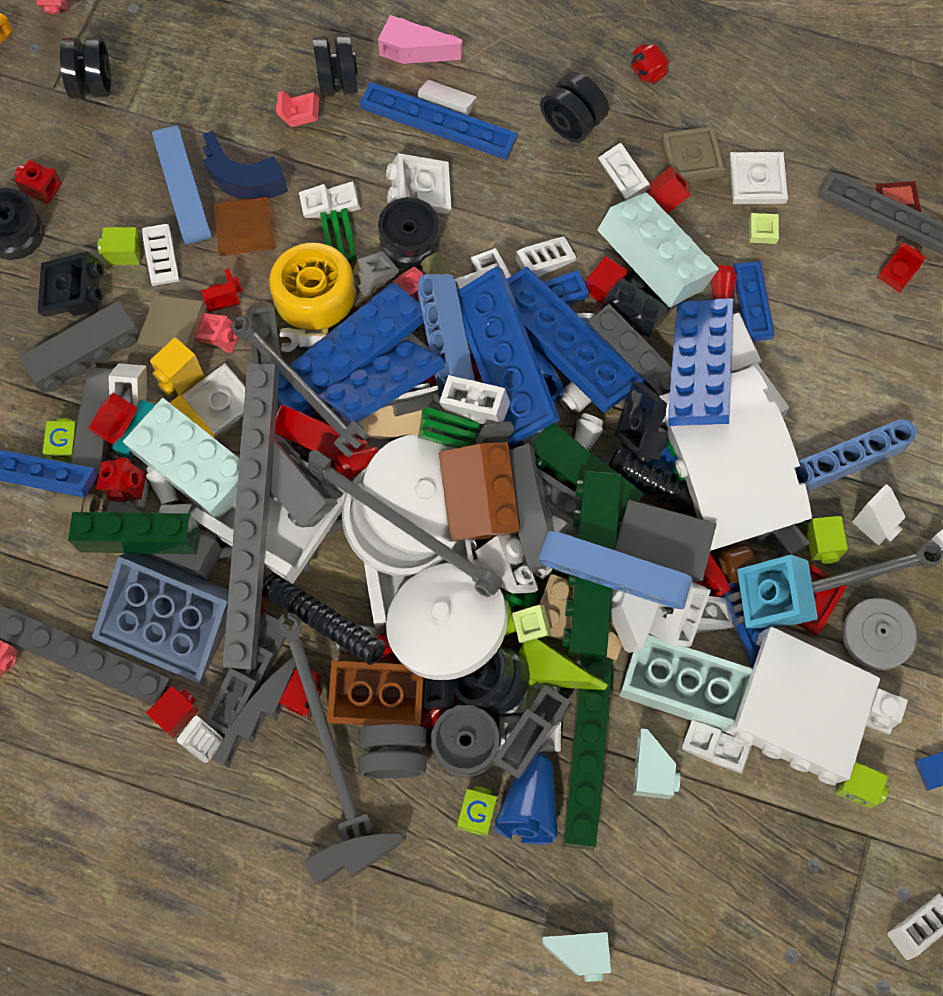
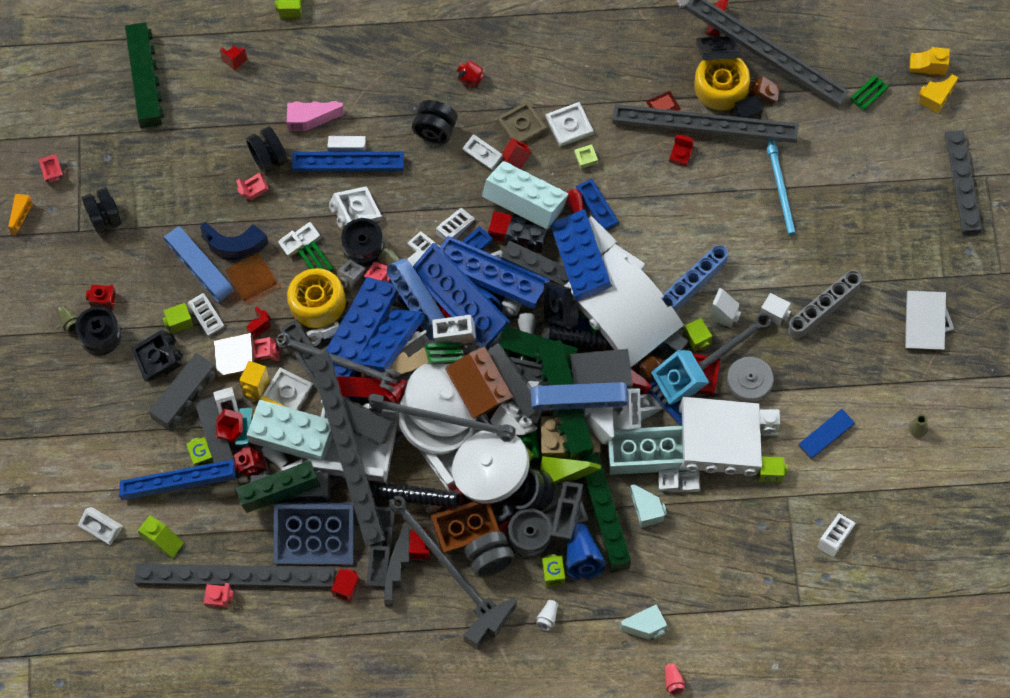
camera: 20 degrees left, 5 degrees down
(200, 739) = (371, 593): white slope -> none
(440, 878) = (547, 616): none -> white cone
(495, 433) = (474, 344): dark grey tile -> none
(531, 623) = (541, 448): yellowish green plate -> none

